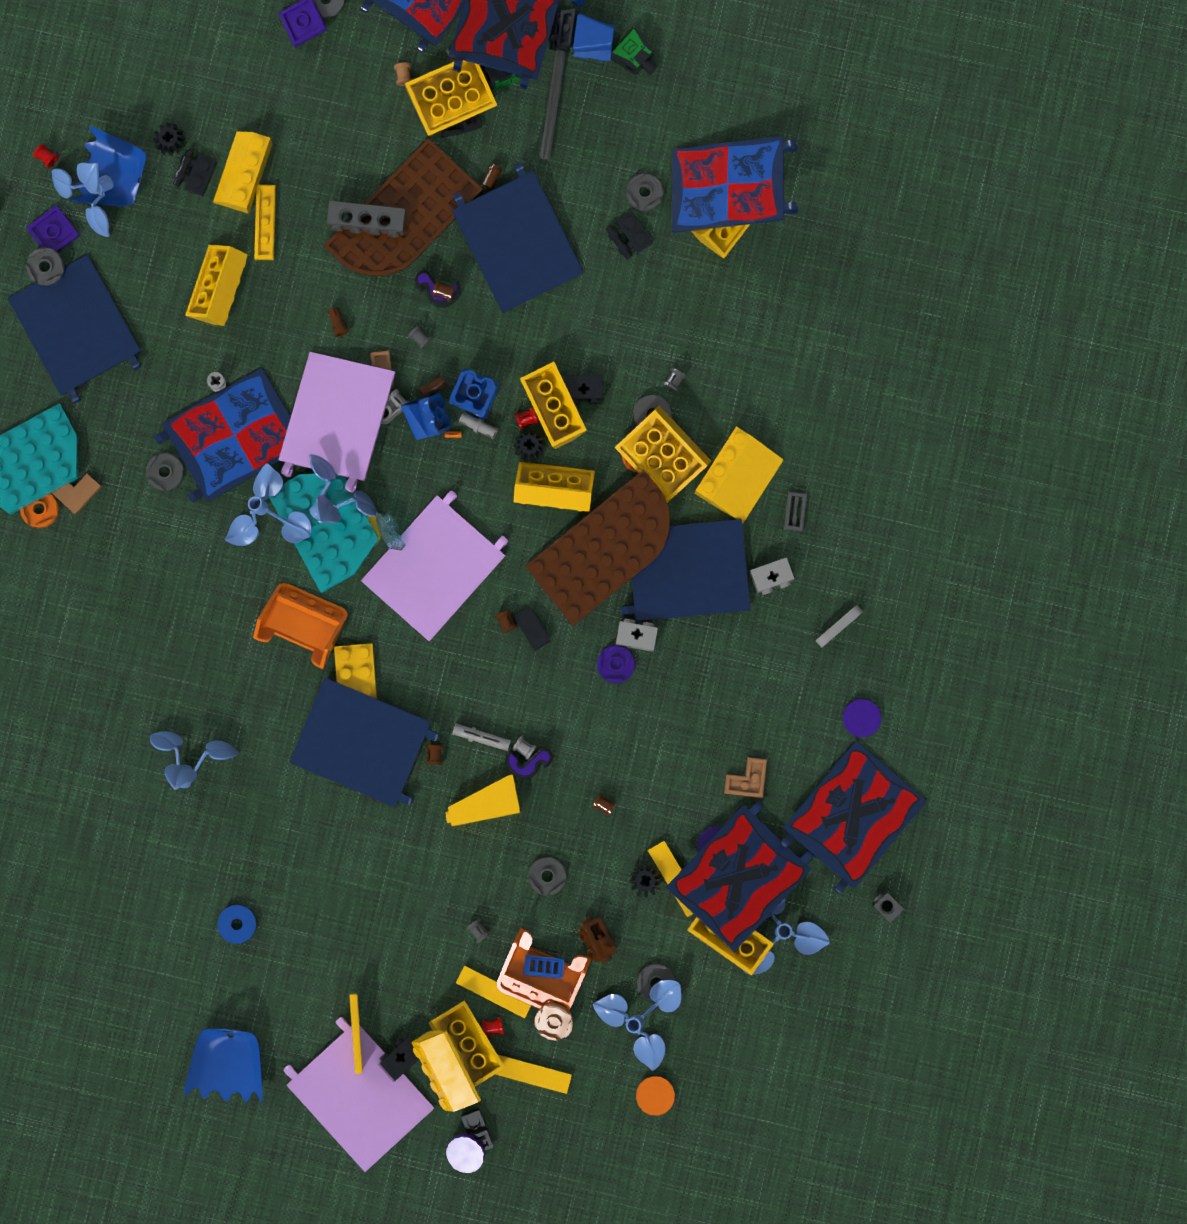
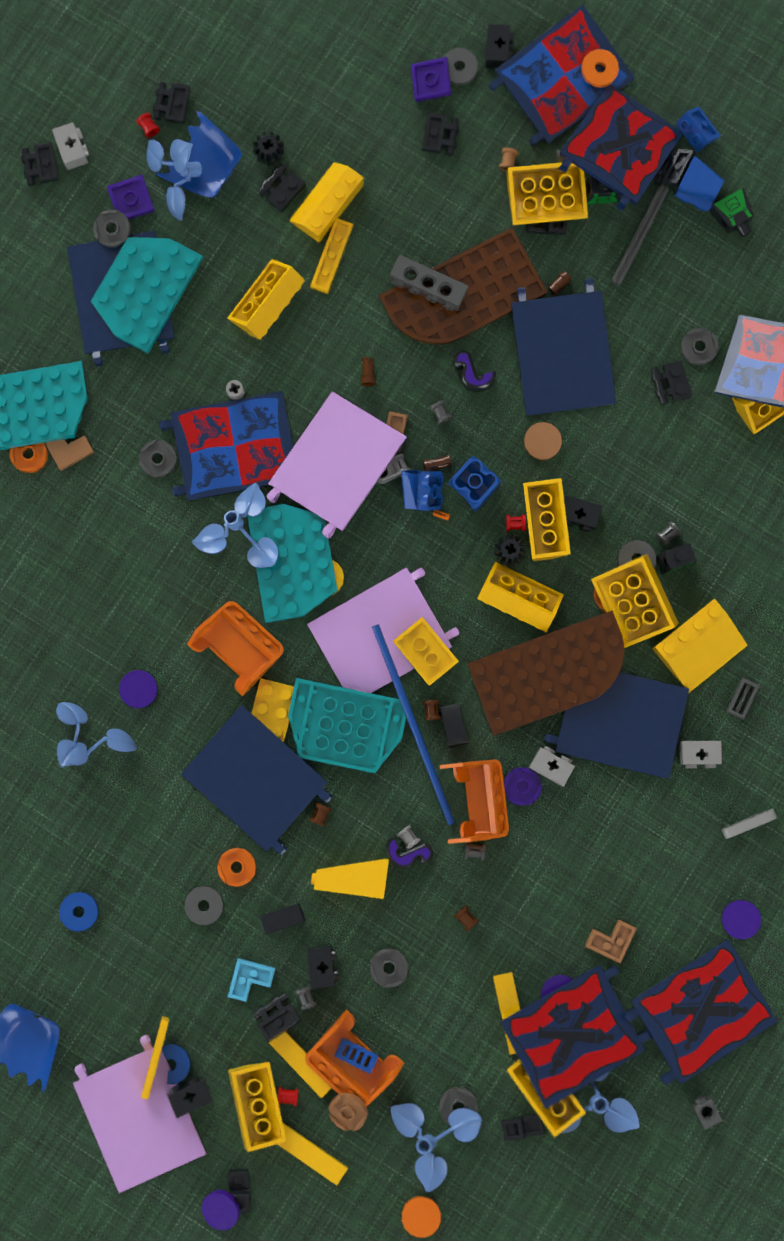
camera: 20 degrees right, 0 degrees up
(66, 126) = (177, 102): none -> black plate
(96, 313) = (144, 288): none -> teal plate
(221, 696) = (138, 689): none -> dark purple tile
(323, 71) = (434, 132): none -> black plate
(323, 508) = (294, 544): medium blue plant -> none
(342, 882) = (215, 905): none -> dark grey tile
(382, 837) = (225, 867): none -> orange tile
(384, 1033) = (182, 1060): none -> blue tile
(388, 528) = (349, 583): clear light blue slope -> none
(415, 927) = (245, 974): none -> medium azure tile
(429, 663) = (344, 725): none -> teal plate
(431, 864) = (282, 918): none -> black slope
(443, 291) = (478, 376): reddish brown bush -> none
(445, 1070) = (227, 1125): yellow slope -> none
(460, 961) = (278, 1023): none -> black plate
(478, 425) = (468, 514): light grey pin -> none
(481, 568) = (425, 651): none -> yellow plate
(481, 737) = (352, 798): light grey pin -> none
(483, 907) = (317, 955): none -> black brick
(492, 639) = (413, 724): none -> blue piece
(526, 332) = (542, 441): none -> medium nougat tile
(583, 686) = (484, 798): none -> orange windscreen
(591, 739) = (475, 851): none -> dark grey bush
(598, 942) = (417, 1050): reddish brown brick -> none
(639, 879) = (475, 1002): black gear -> none
(688, 401) = (676, 558): none -> black torso
(722, 980) = (522, 1127): none -> black slope

